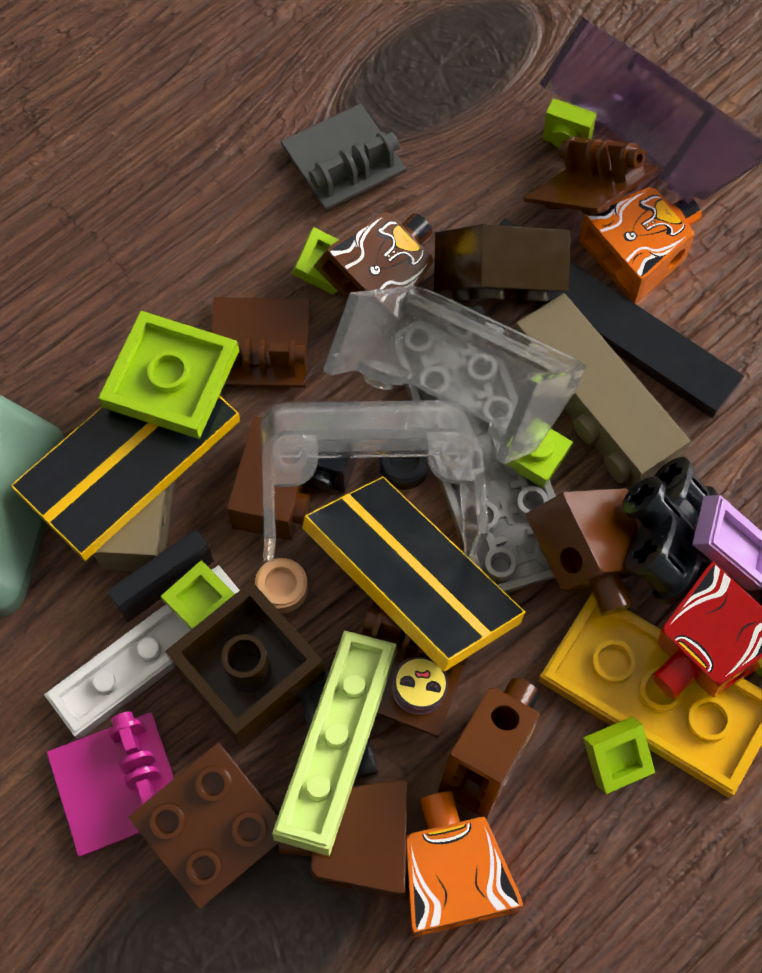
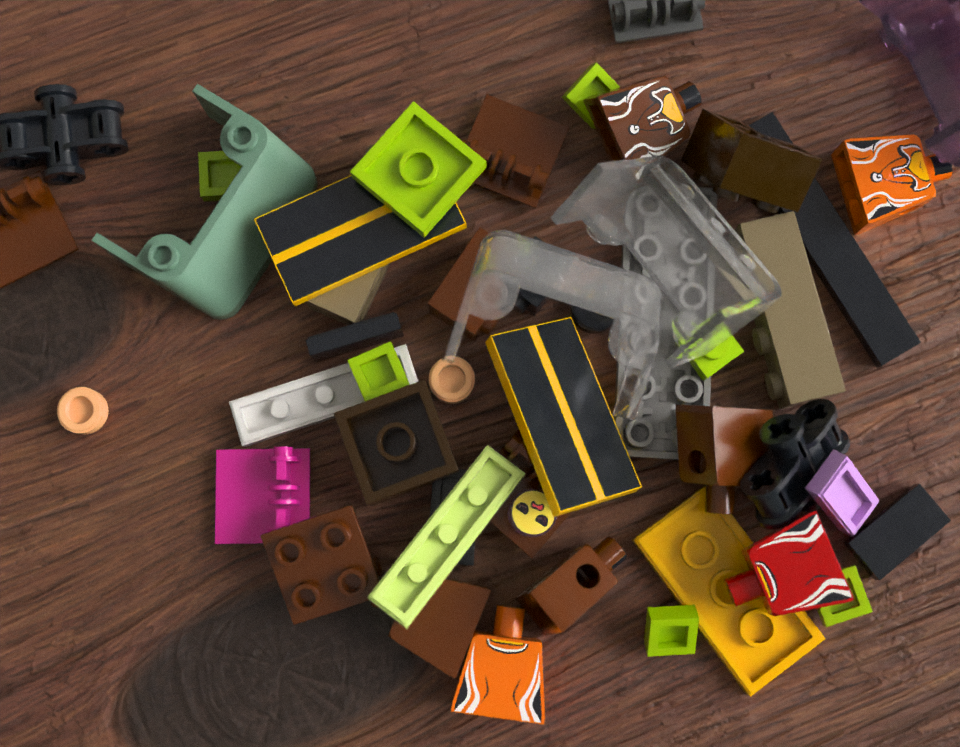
camera: 20 degrees right, 15 degrees up
(567, 120) = (868, 41): lime plate -> none
(594, 175) = (867, 105): reddish brown hinge -> none

